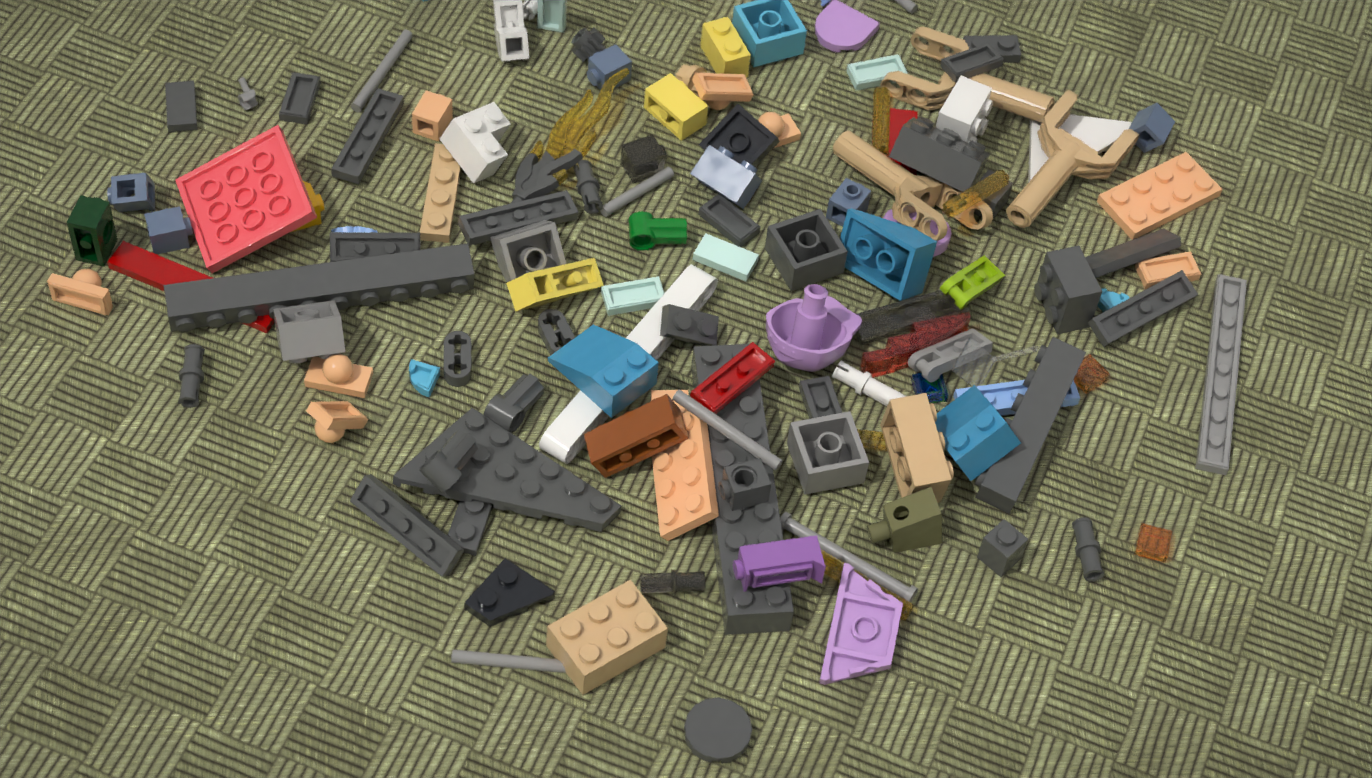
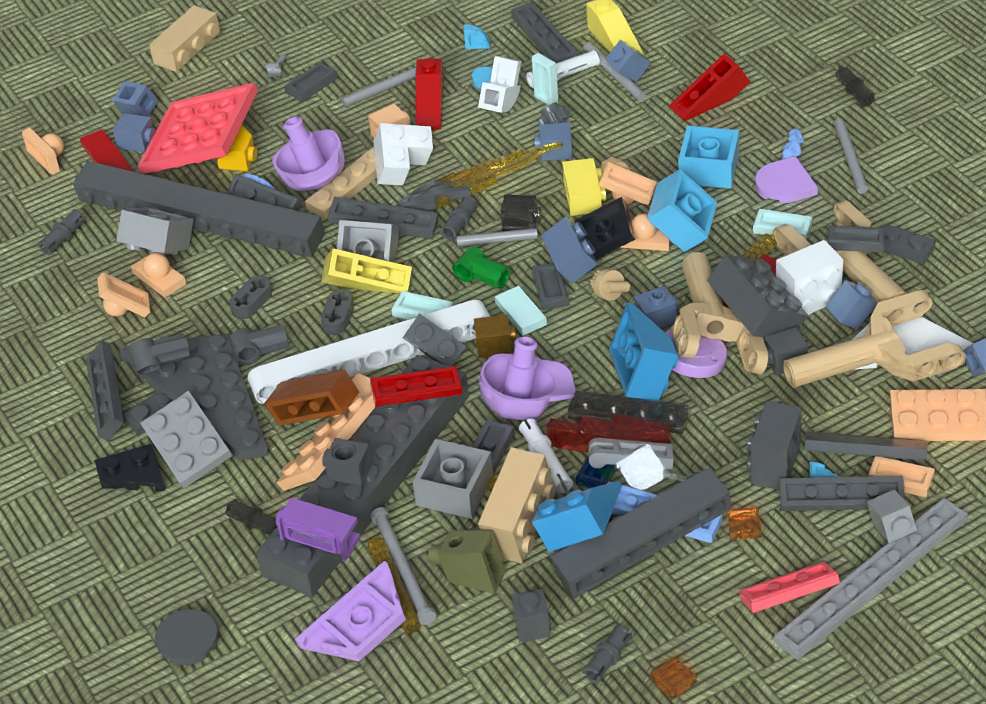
camera: 45 degrees right, 10 degrees down
(92, 230) = (80, 109): dark green brick -> none
(121, 100) = (184, 38): none -> tan brick
(181, 106) = (224, 58): dark grey tile -> none
(367, 136) = (342, 116): dark grey plate -> none
(400, 185) = (309, 157): none -> lavender piece
(423, 376) = (216, 300): medium azure tile -> none
(440, 65) = (429, 92): none -> red slope
(474, 26) = (481, 75): none -> medium azure tile
(507, 661) = (96, 520): light grey bar -> none
(541, 536) = (186, 439): none -> light grey plate
(606, 368) = (334, 342): dark azure slope -> none
(606, 636) = (164, 529): tan brick -> none
(724, 47) = (661, 155): light yellow brick -> none
(727, 429) = (375, 419): light grey bar -> none
(730, 294) = (494, 335): none -> pearl gold brick
(784, 196) = (609, 284): none -> tan piece
(798, 95) = (682, 210): none -> medium azure brick
(805, 249) = (581, 326): dark grey brick -> none
(972, 281) = (699, 406): lime plate -> none
(975, 193) = (757, 337): clear yellow axle -> none
(1010, 126) = (852, 304): none -> sand blue brick
(1173, 414) = (788, 587): none -> coral tile
(1203, 310) = (891, 516): none -> light grey brick

